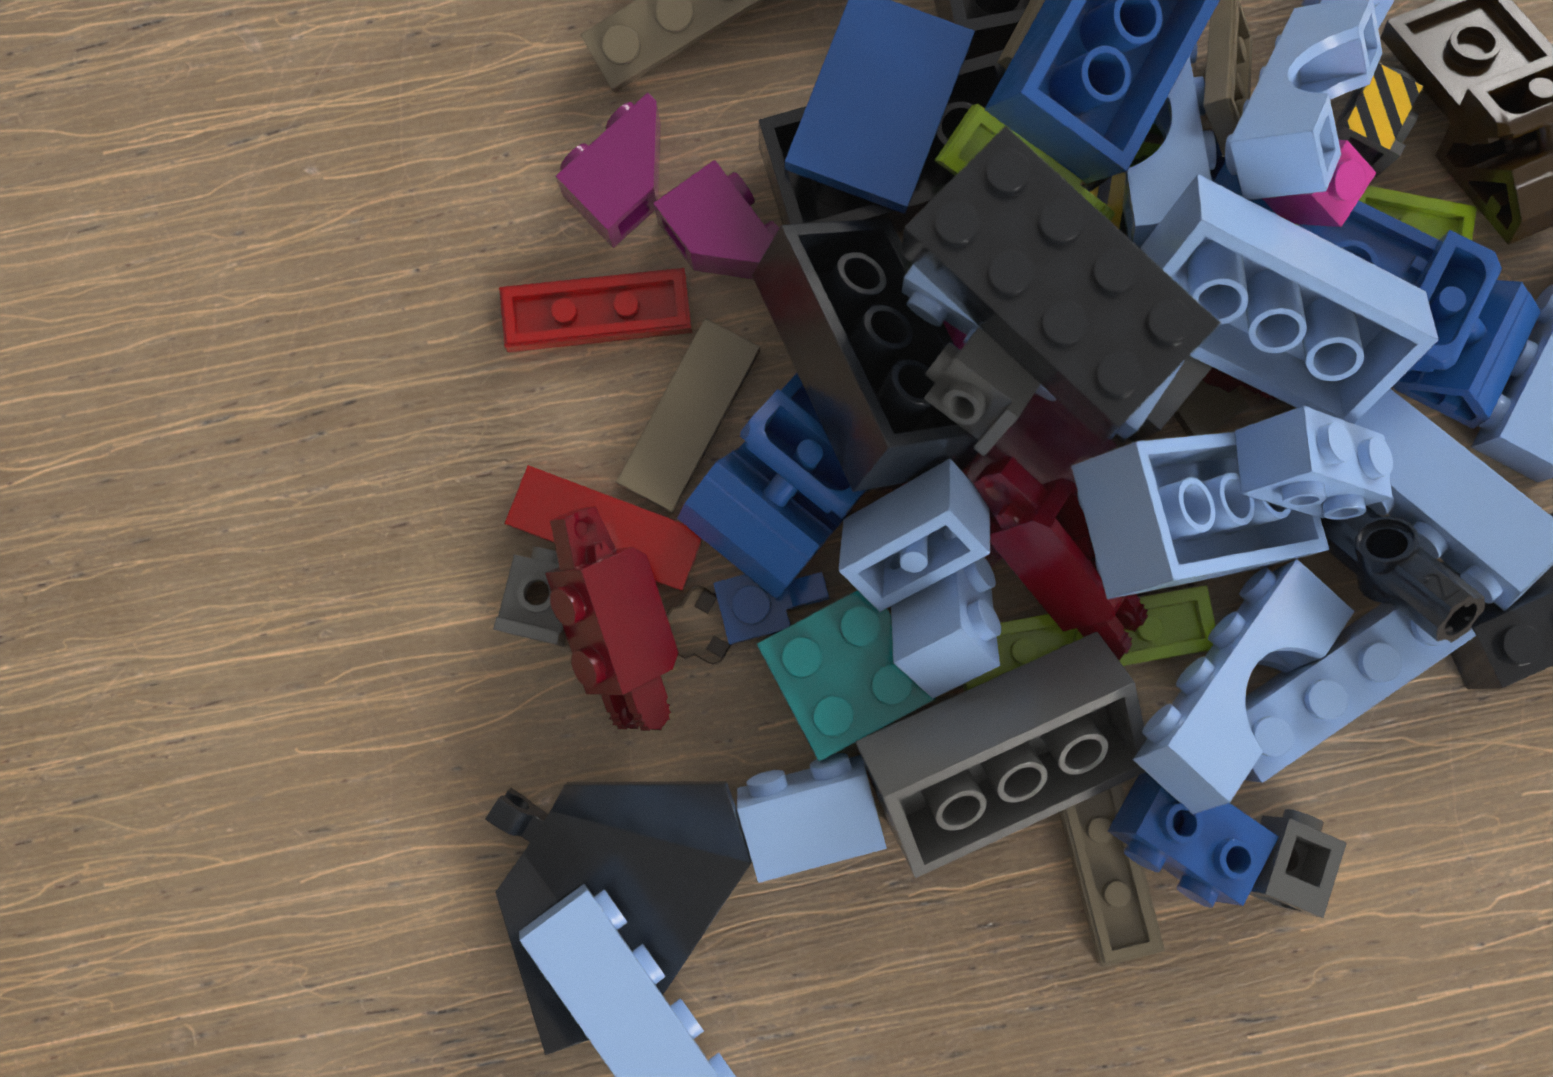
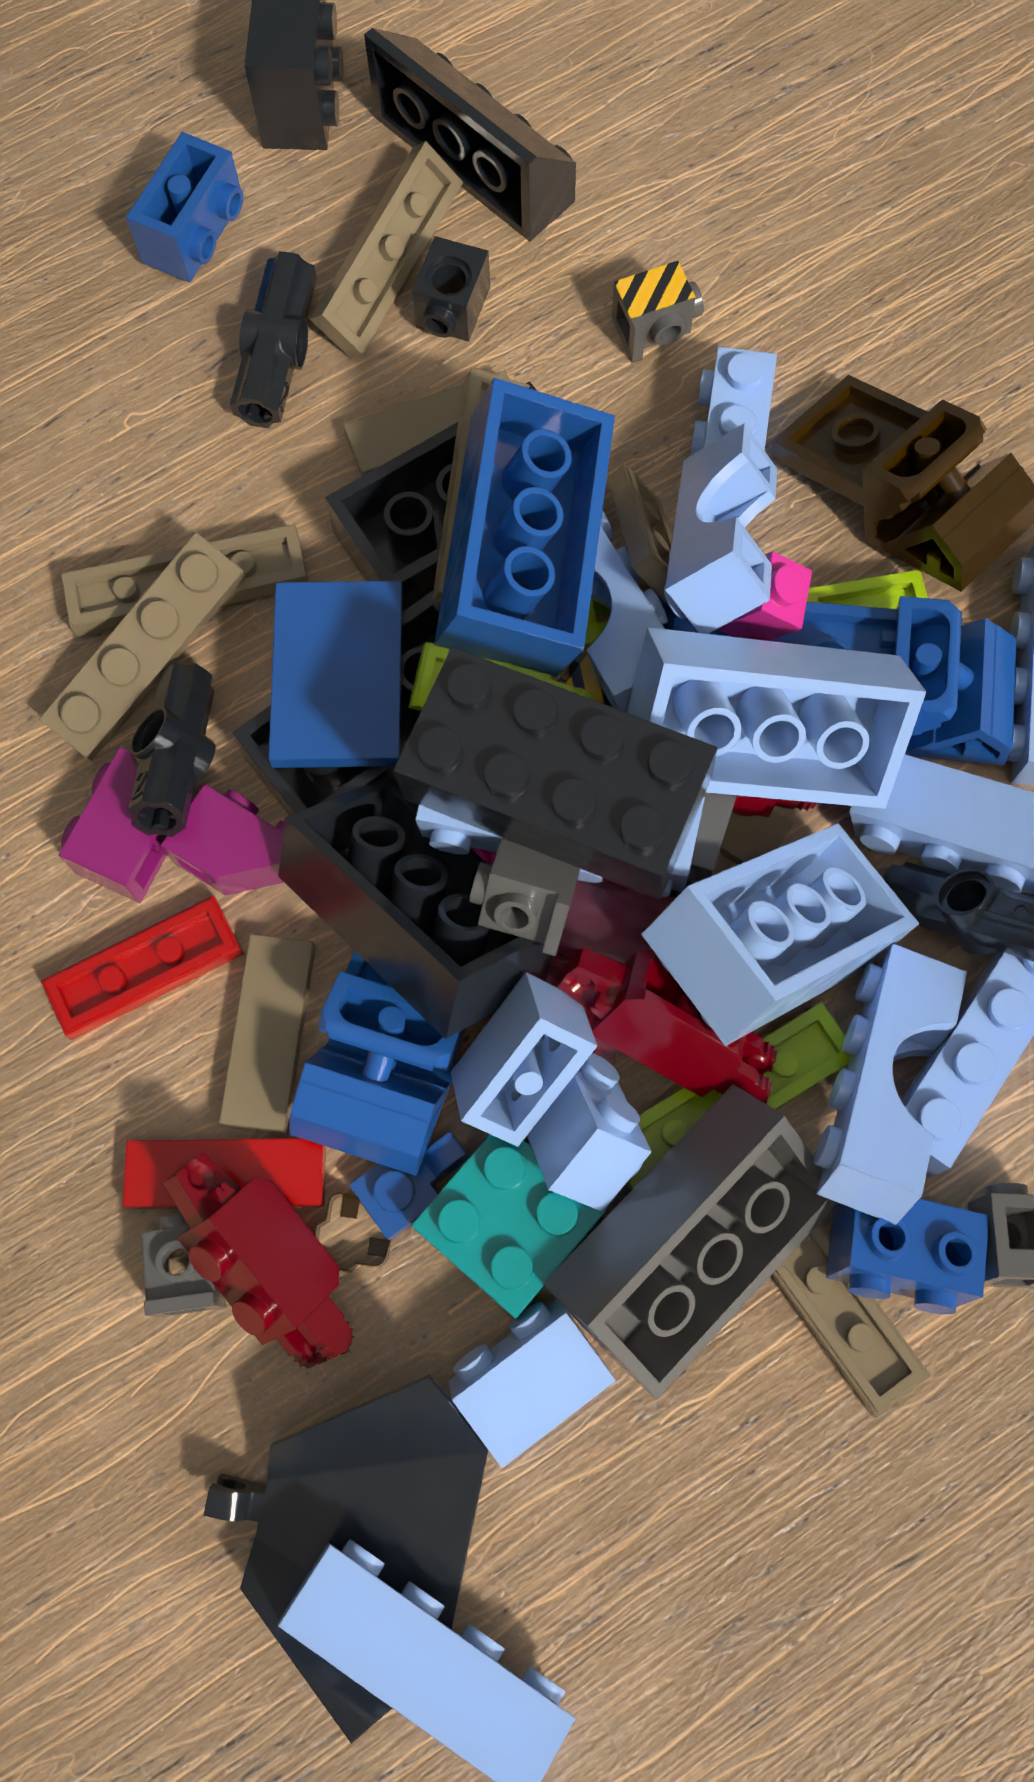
camera: 15 degrees left, 10 degrees down
(695, 113) = (172, 750): none -> black piece
(1314, 464) = (867, 848): light blue brick -> none
(1380, 116) = (800, 524): brick -> none

